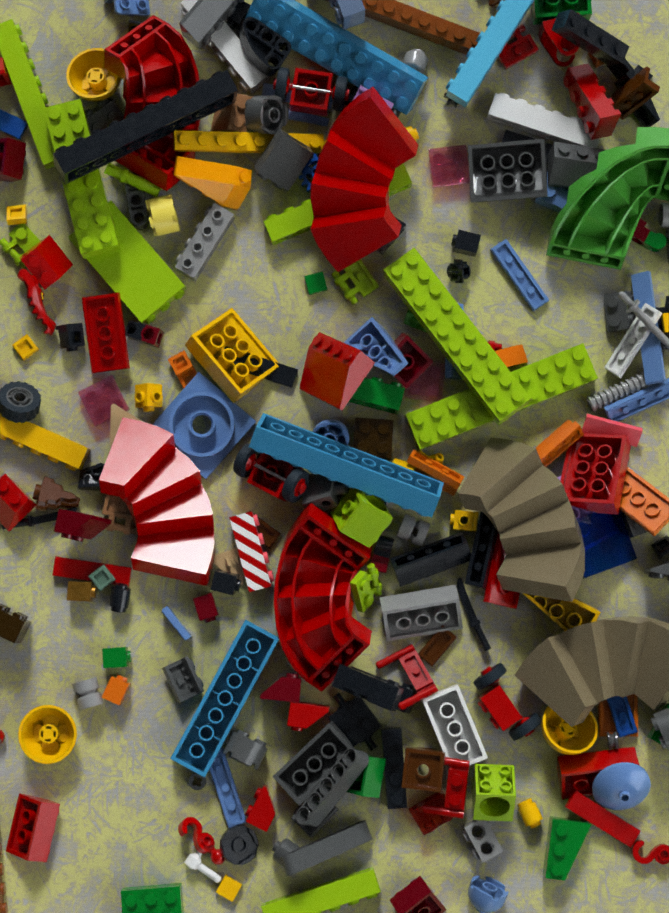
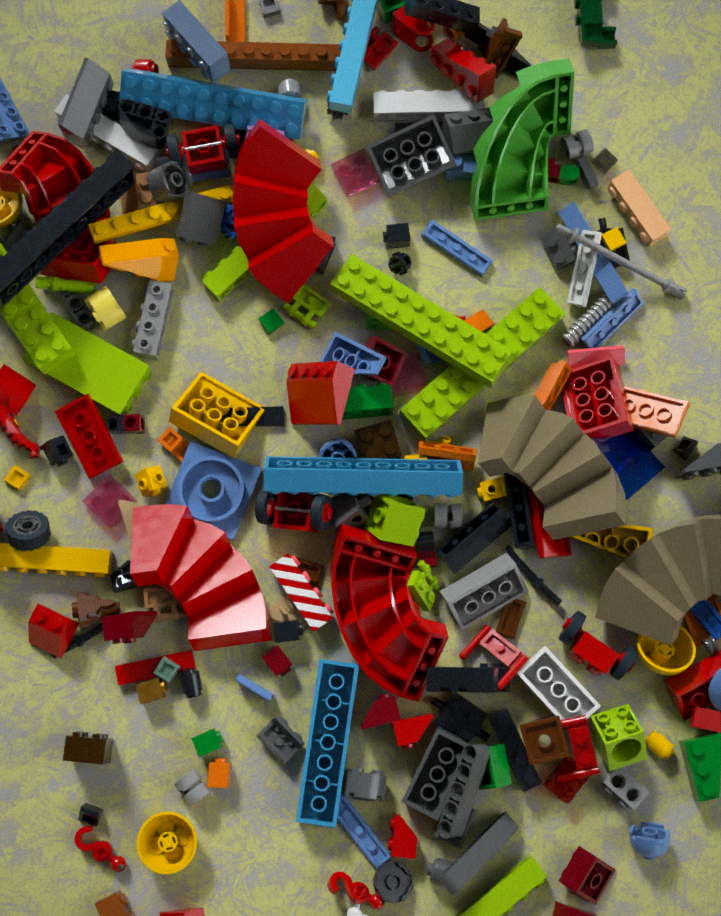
camera: 20 degrees left, 5 degrees down
(196, 787) = (330, 840): dark grey bush -> none

